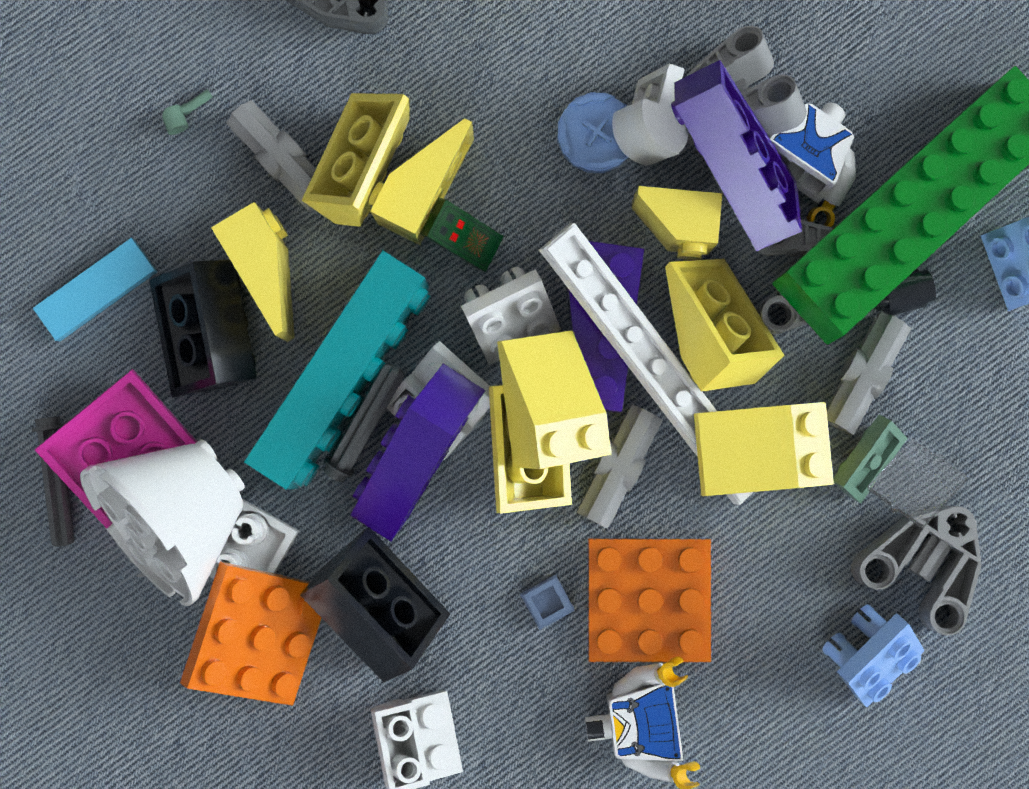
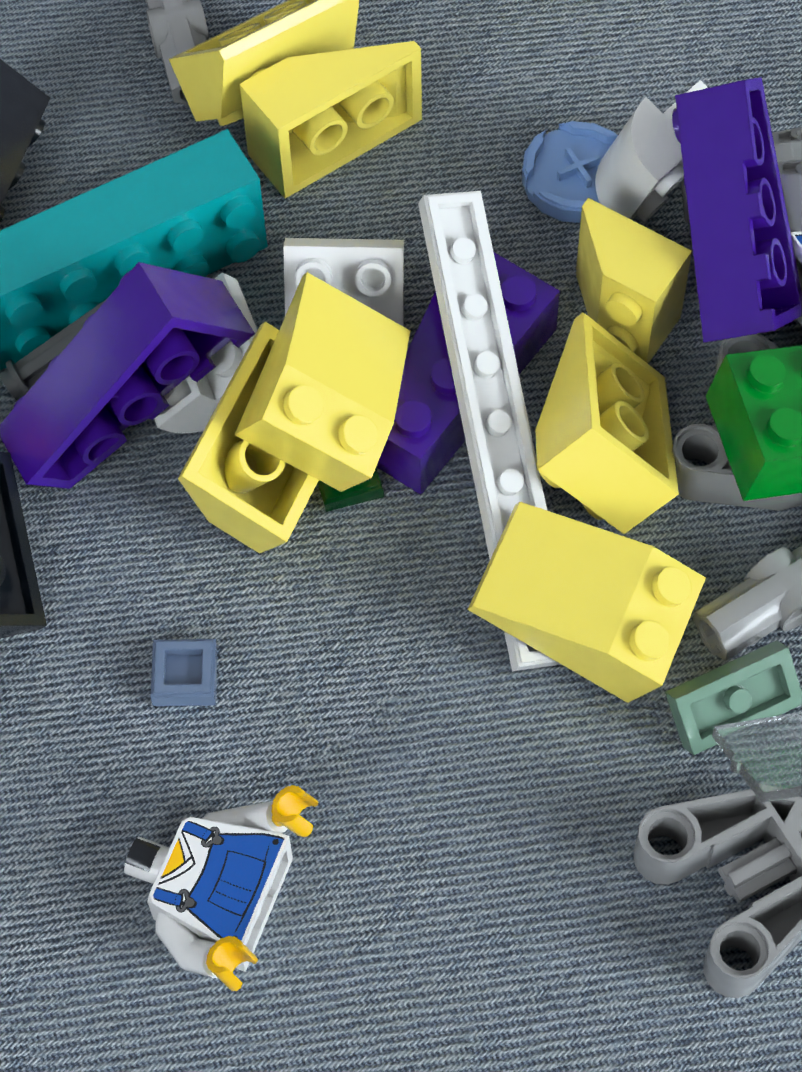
camera: 30 degrees right, 25 degrees down
(262, 261) = (80, 103): light yellow slope -> none
(461, 234) = (339, 186): dark green tile -> none
(620, 470) = (381, 545): light grey piece -> none
(649, 600) = (333, 727): orange plate -> none
(882, 659) = (608, 961): light blue plate -> none

